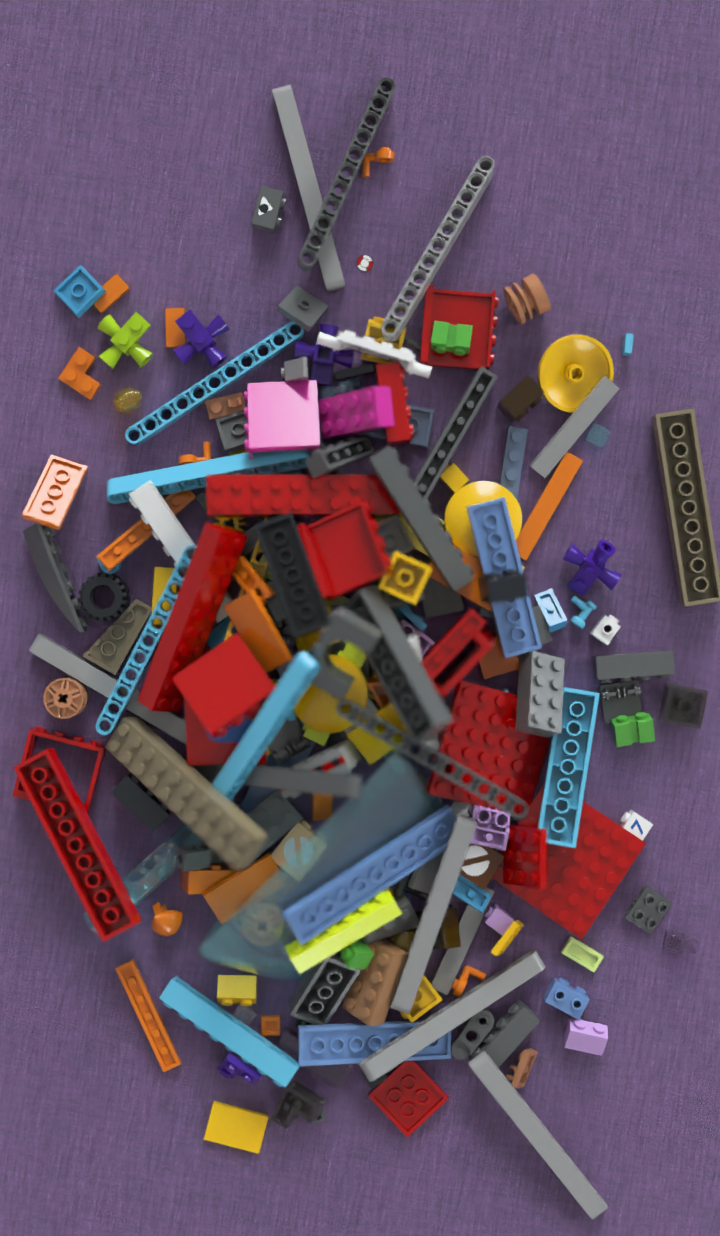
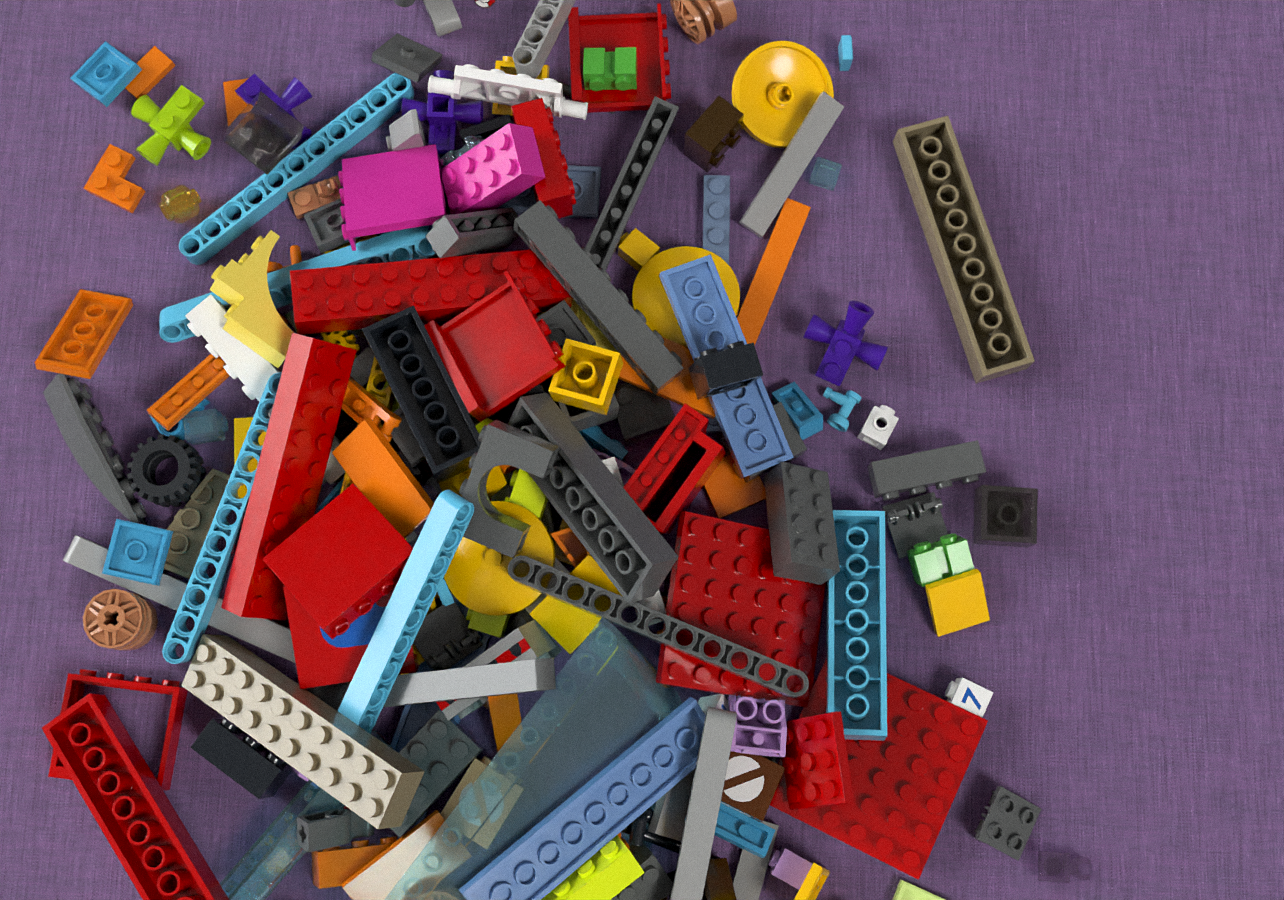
camera: 10 degrees left, 10 degrees down
(81, 653) = (137, 552): none -> dark azure tile
(133, 568) = (205, 426): none -> clear light blue brick
(177, 500) = (252, 311): none -> light yellow arch
(194, 361) = (263, 133): none -> clear smoke brick
(639, 760) = (957, 602): none -> yellow tile

